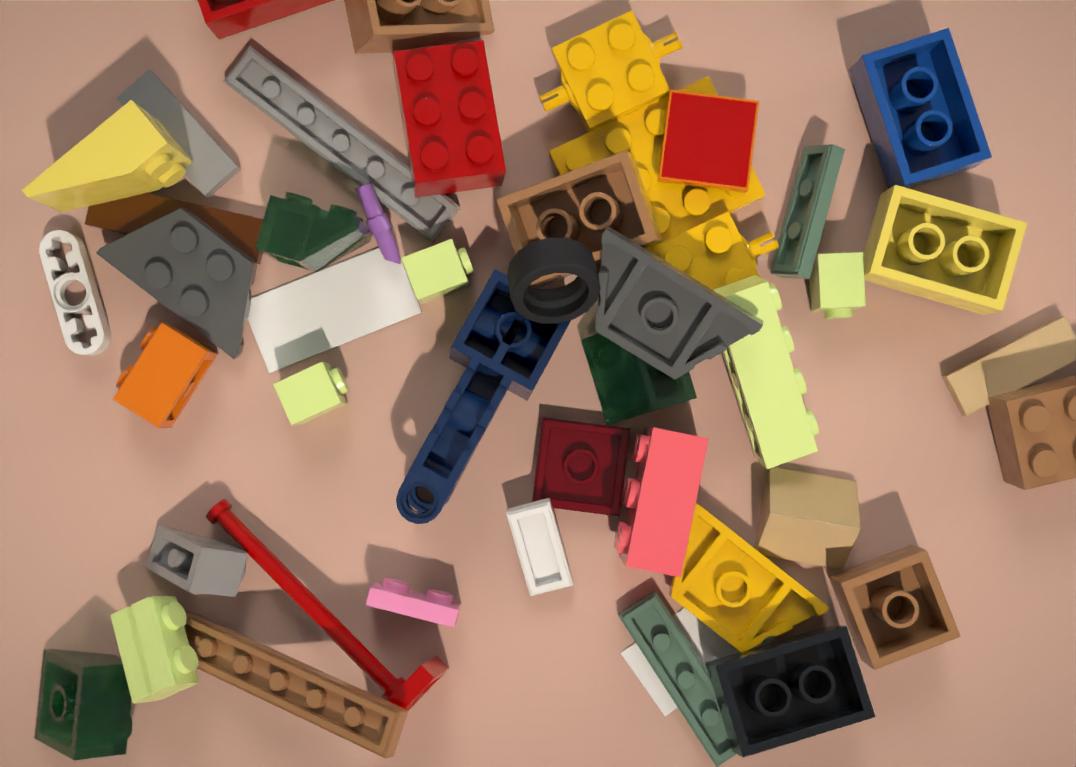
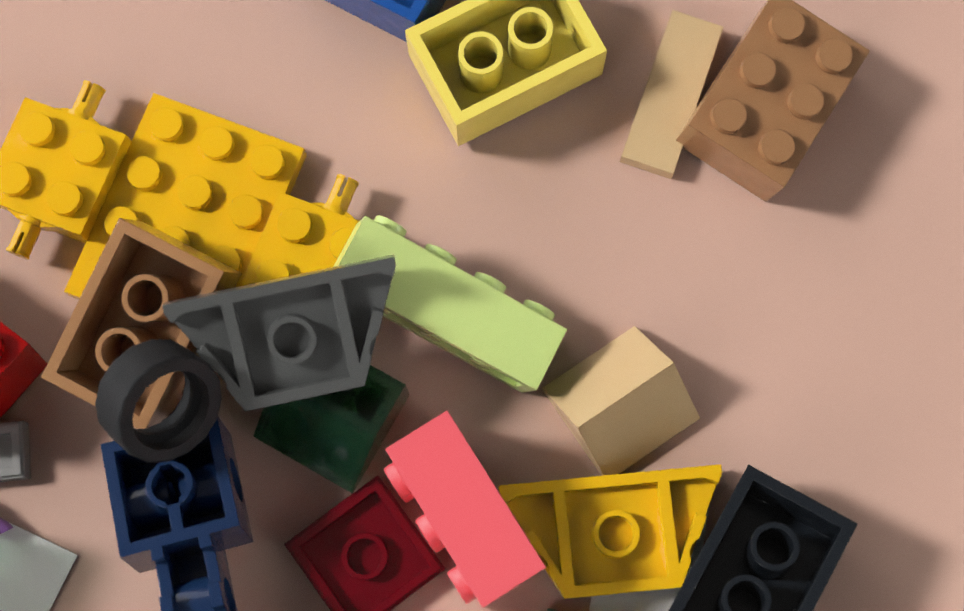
camera: 45 degrees left, 10 degrees down
(438, 270) = (53, 500): yellowish green brick -> none
(708, 141) = (202, 147): red tile -> none
(807, 211) = (355, 129): sand green tile -> none
(837, 284) = (443, 166): yellowish green brick -> none
(894, 606) = (777, 405): medium nougat brick -> none

